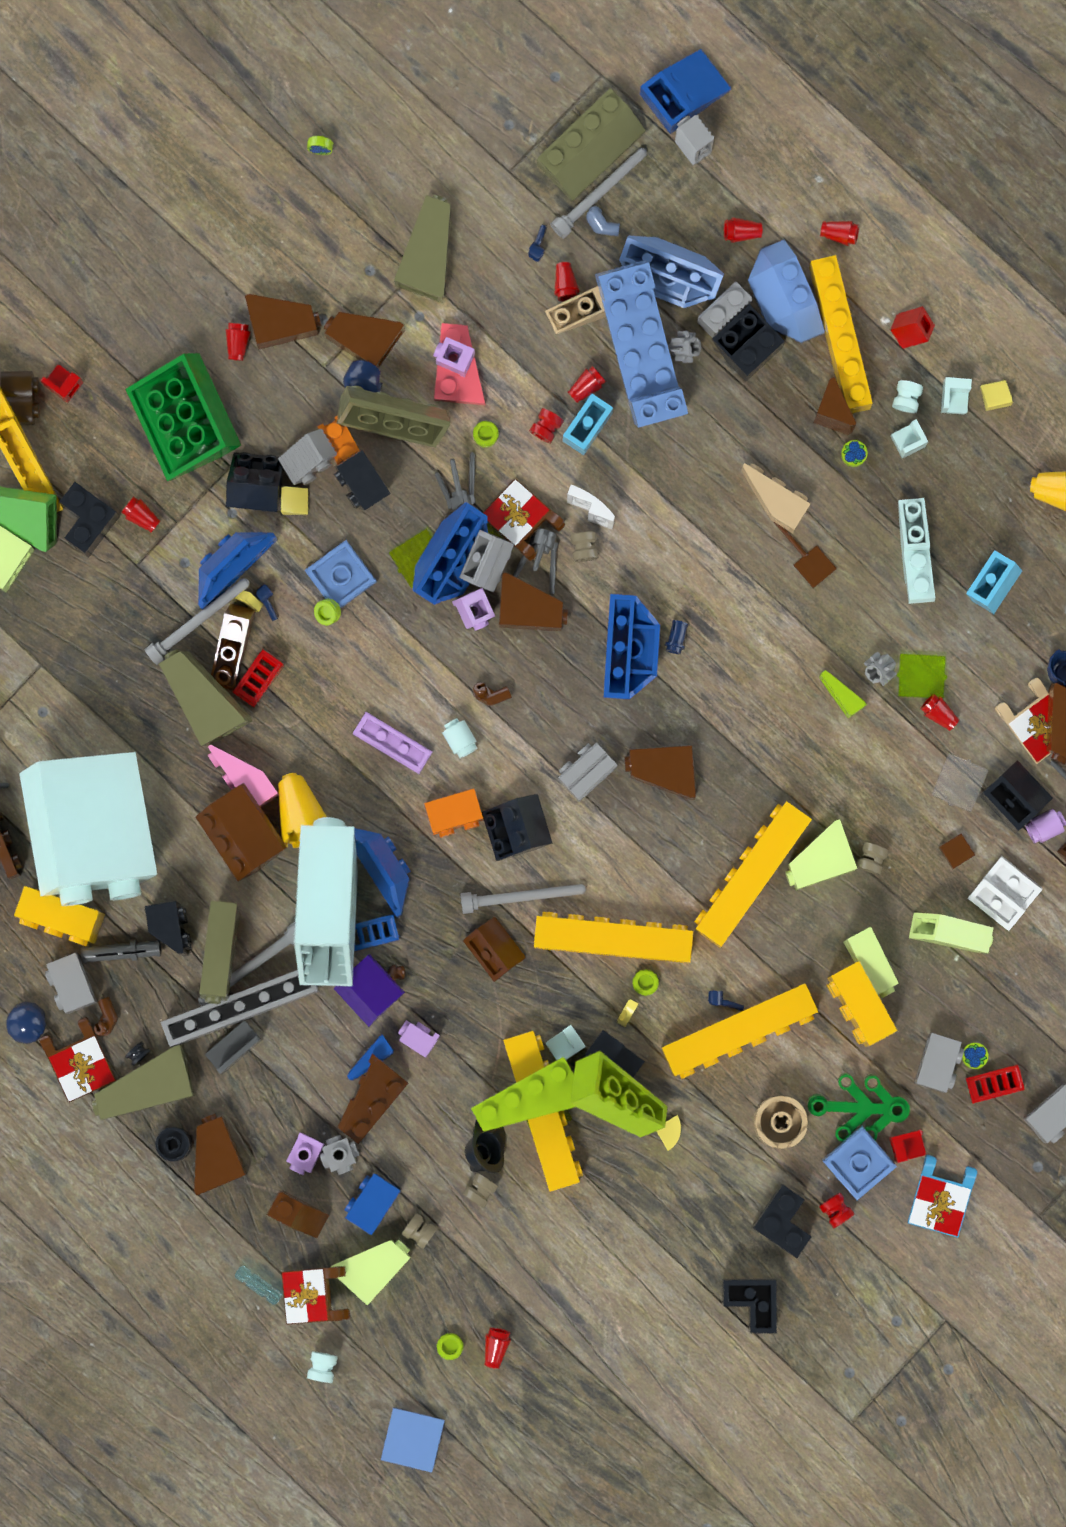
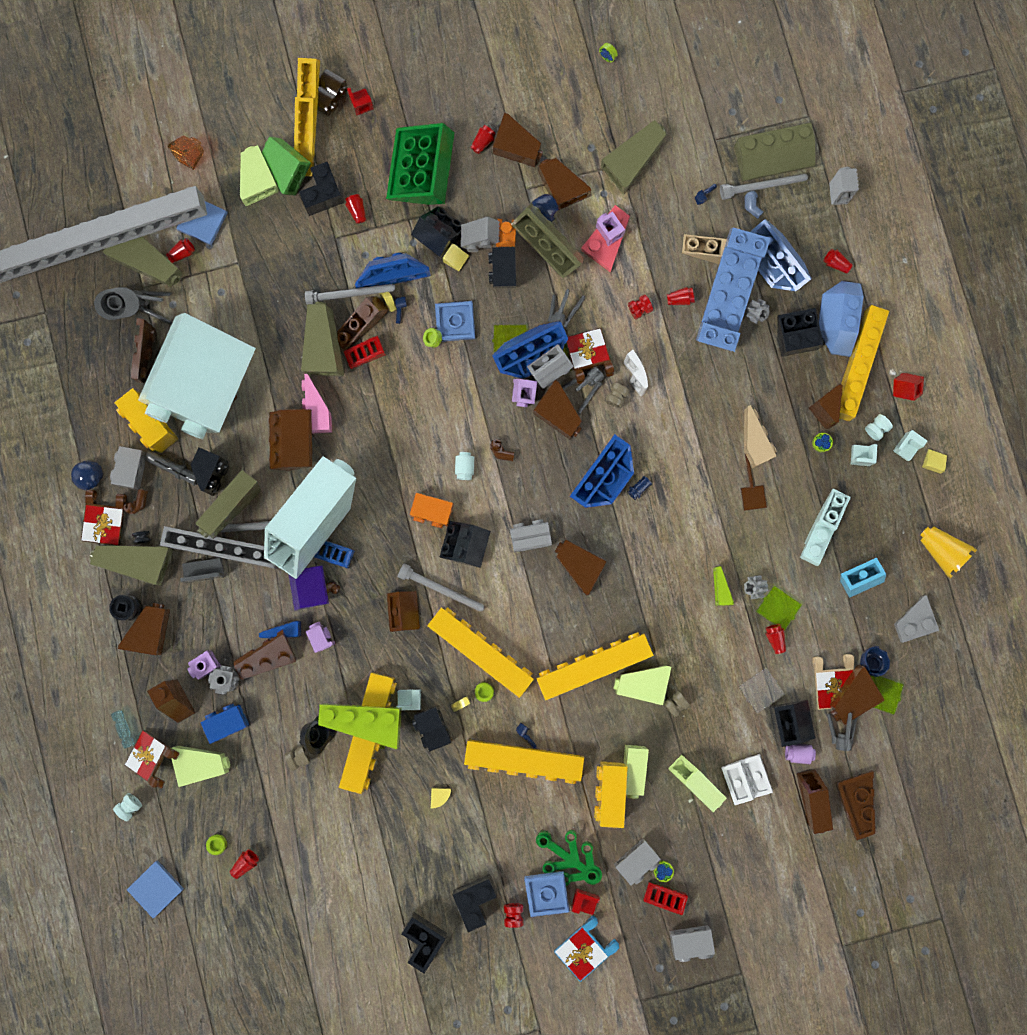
camera: 30 degrees right, 0 degrees up
(297, 808) = (337, 444): yellow cone -> none
(383, 867) = (365, 516): blue wedge -> none
(392, 743) = (421, 443): lavender tile -> none
(425, 1233) = (244, 764): dark tan wheel -> none
(485, 434) = (599, 289): lime tile -> none
(565, 282) = (707, 226): red cone -> none
(587, 424) = (666, 321): medium azure brick -> none
(615, 1096) = (416, 755): lime wedge -> none
(684, 89) = (854, 151): blue slope -> none
(724, 309) = (796, 302): light grey brick -> none
(765, 1122) = (505, 845): tan brick -> none
(840, 231) = (899, 300): red cone -> none
(956, 851) = (732, 732): reddish brown tile -> none

